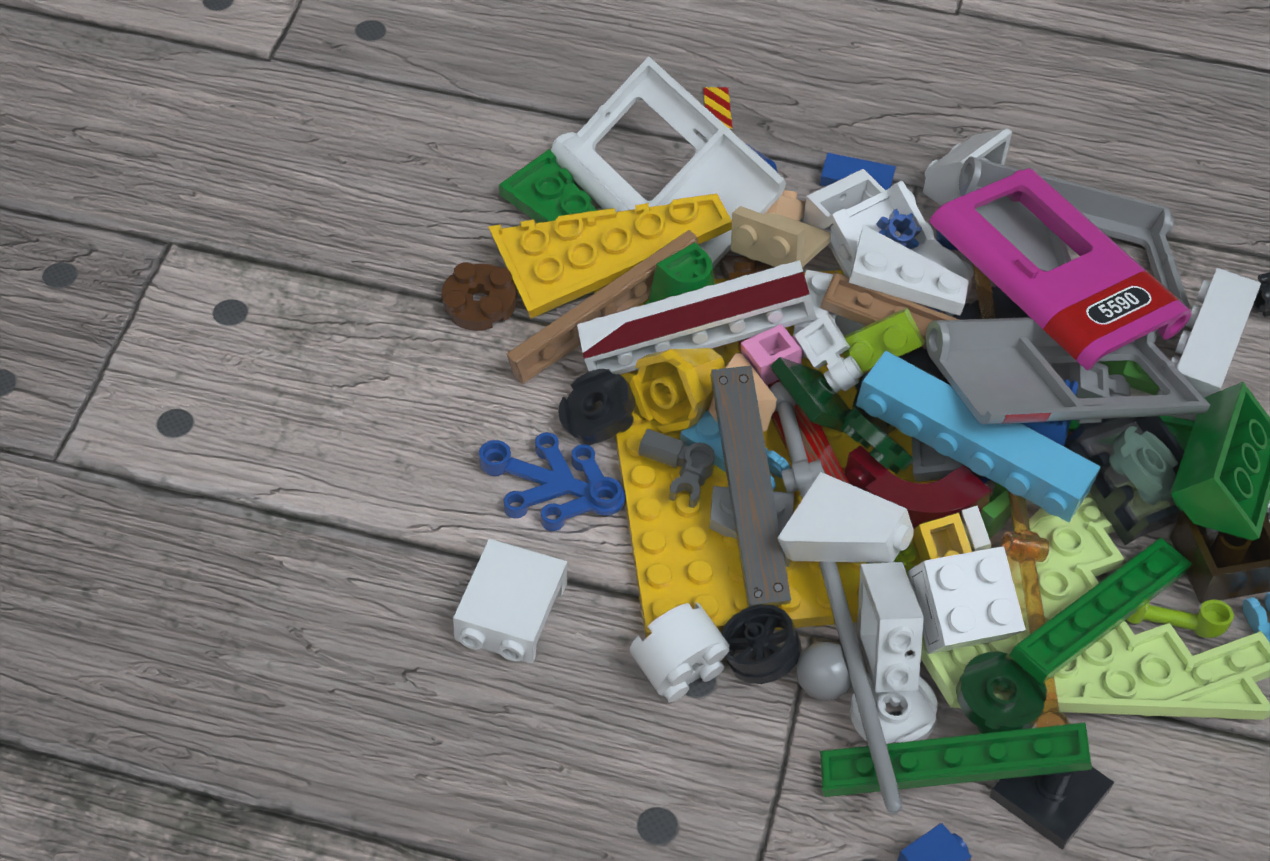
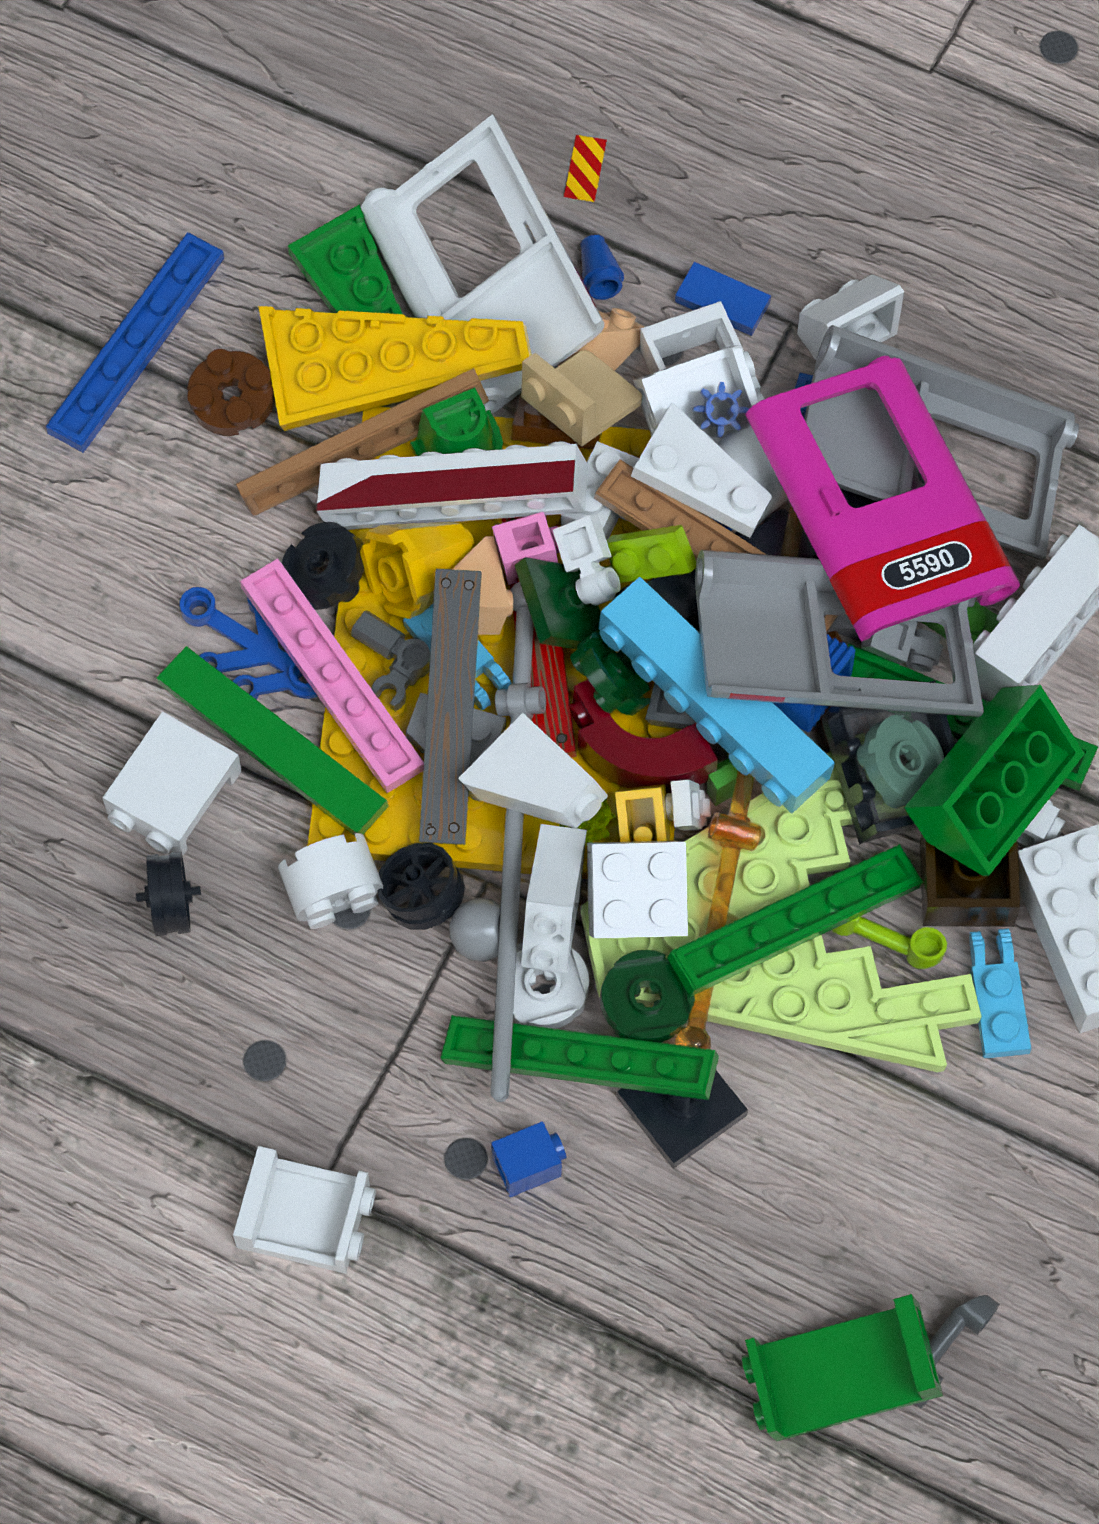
camera: 15 degrees right, 15 degrees up
(386, 275) = (135, 342): none -> blue tile
(534, 689) = (168, 894): none -> black wheel
(593, 549) = (272, 742): none -> green tile
(634, 486) = (332, 676): none -> bright pink plate

